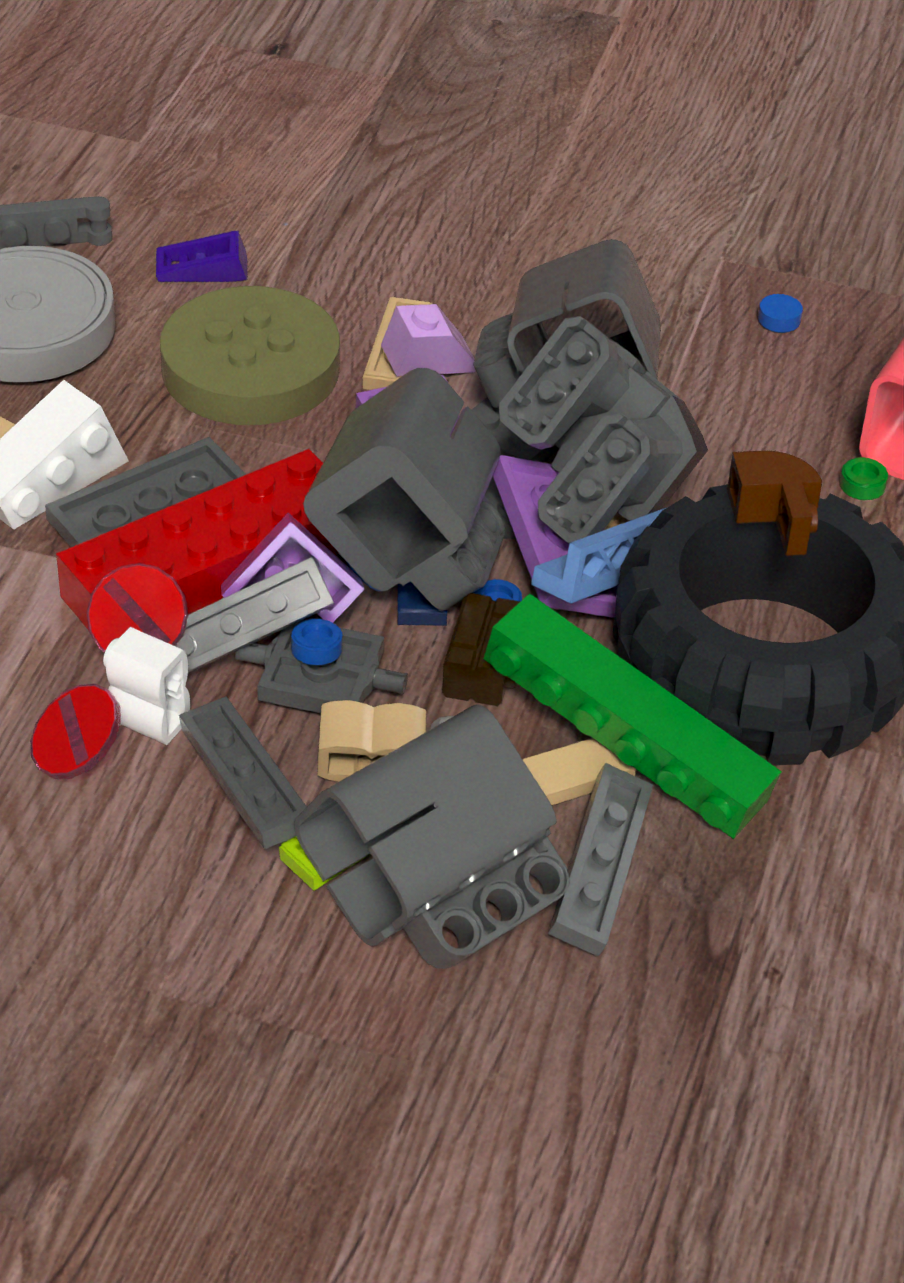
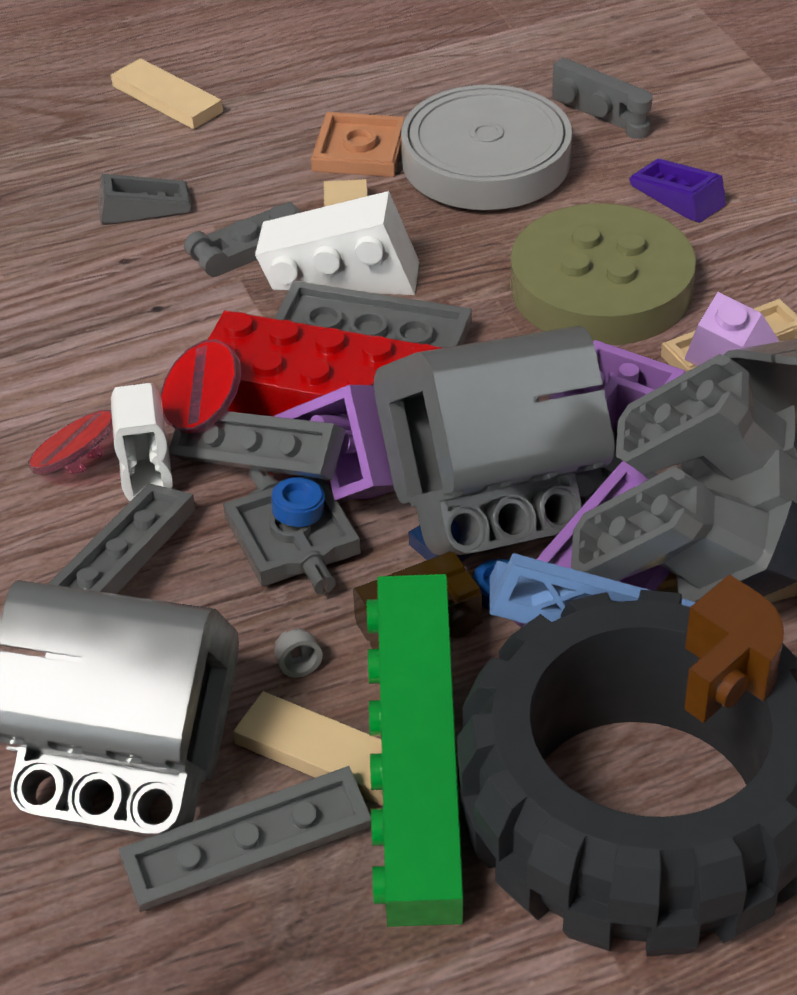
camera: 55 degrees right, 0 degrees up
(360, 734) = (242, 597): tan brick -> none

